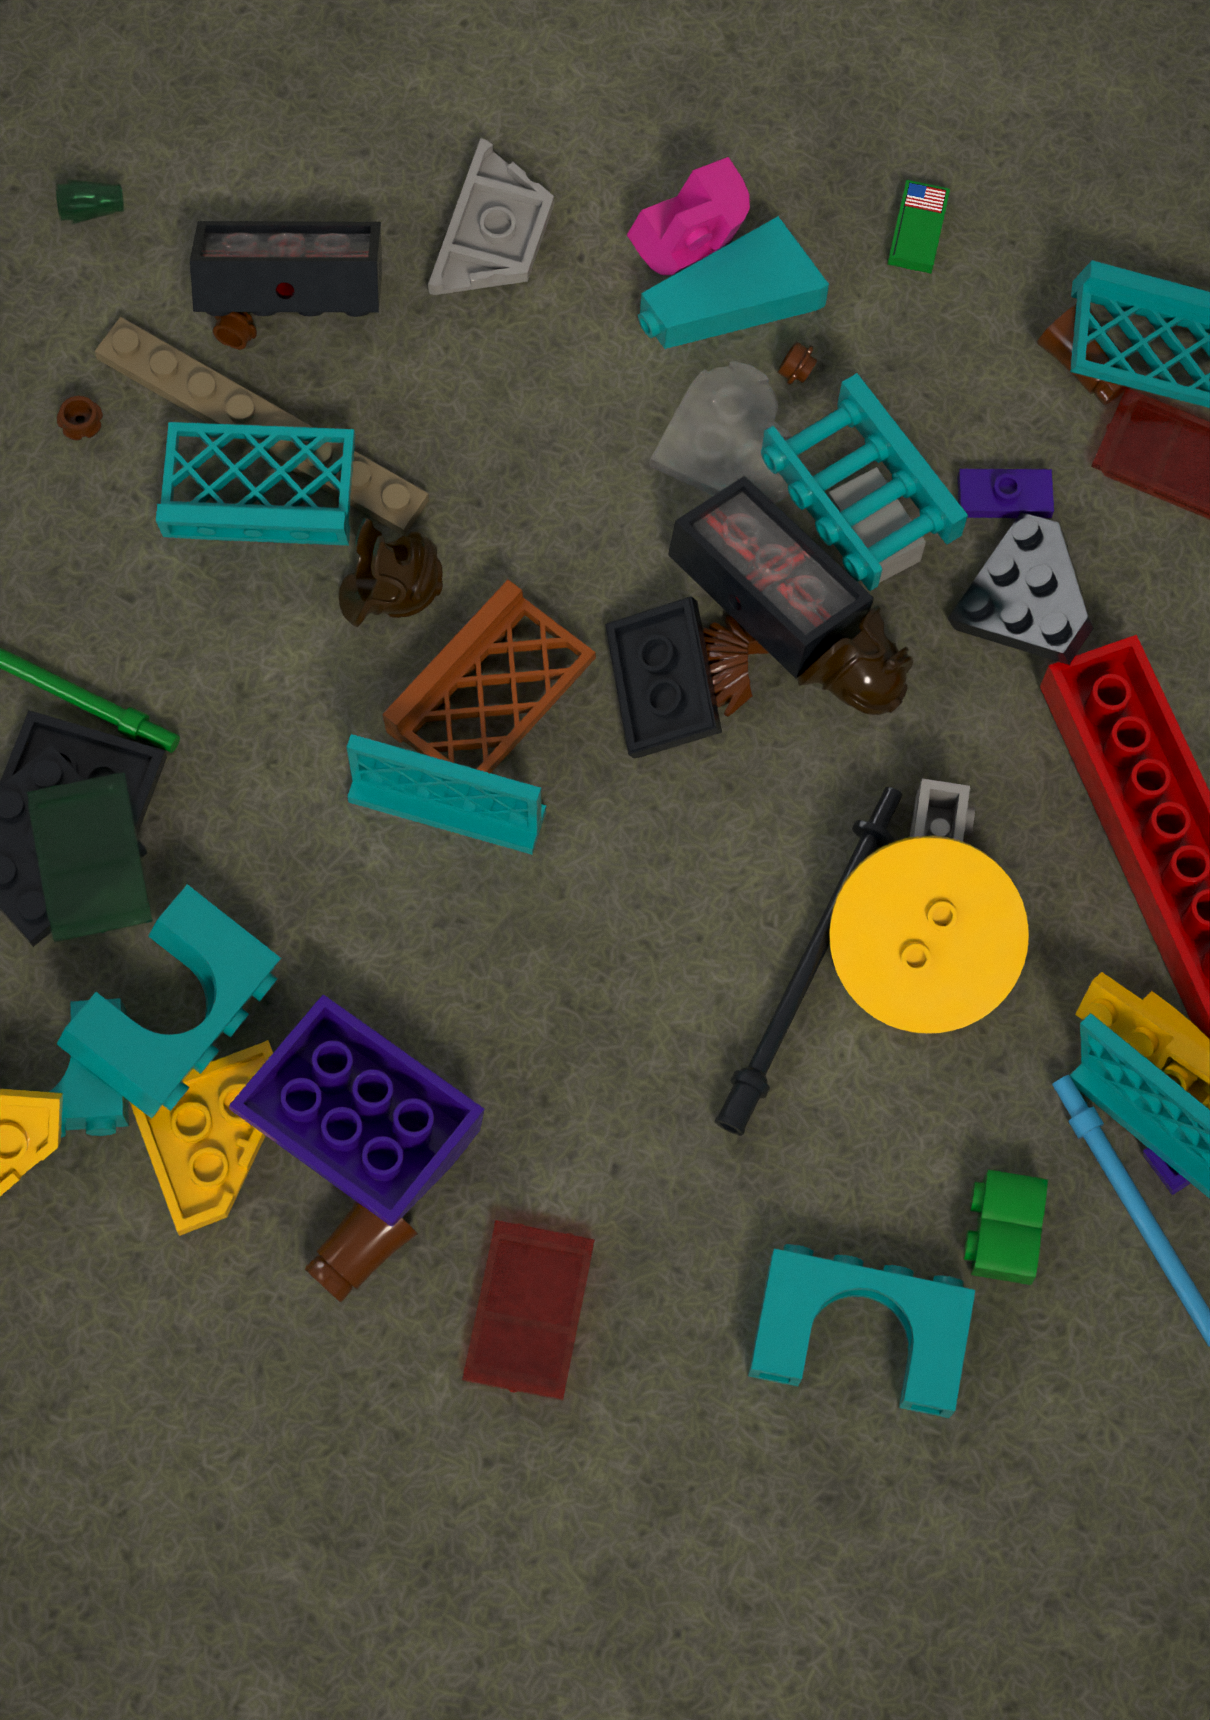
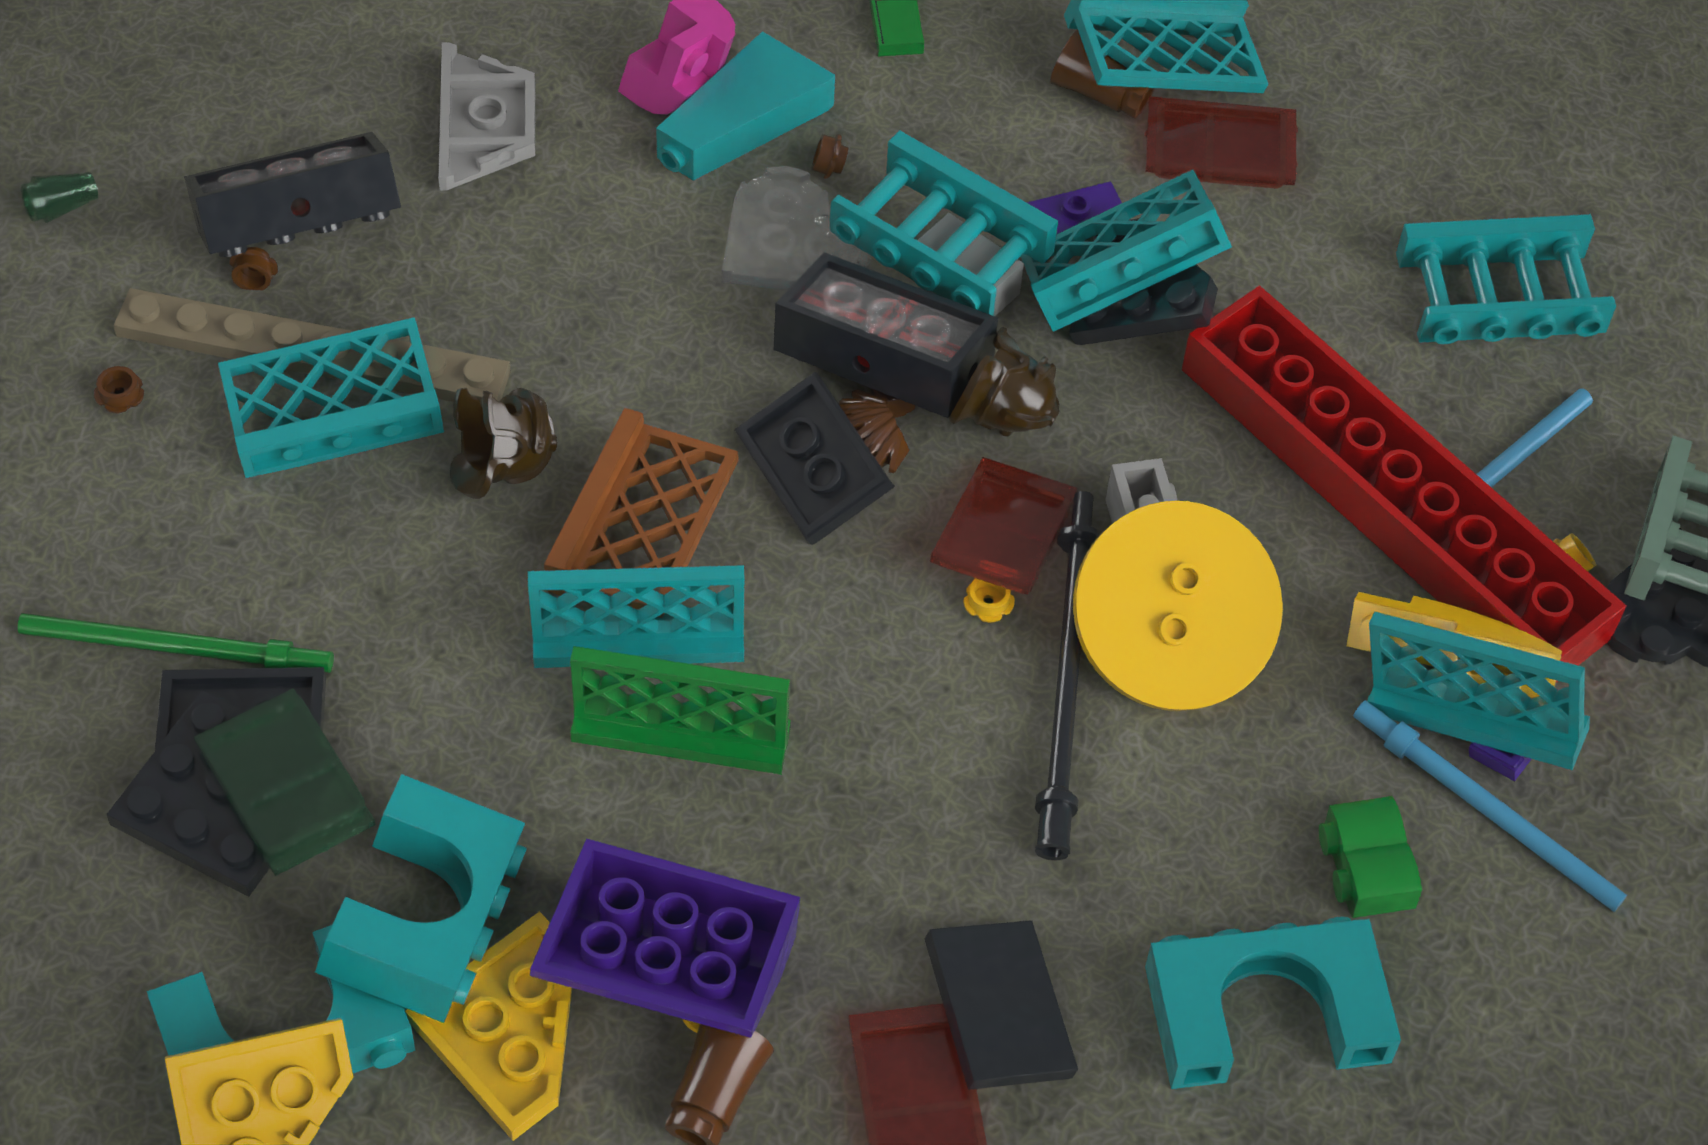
camera: 20 degrees left, 15 degrees down
(449, 898) = (690, 730): none -> green fence
(627, 1254) = (1000, 1004): none -> black tile
(771, 853) = (975, 605): none -> yellow plate
(808, 800) = (1004, 526): none -> clear red piece
(1027, 574) = (1143, 258): none -> teal fence

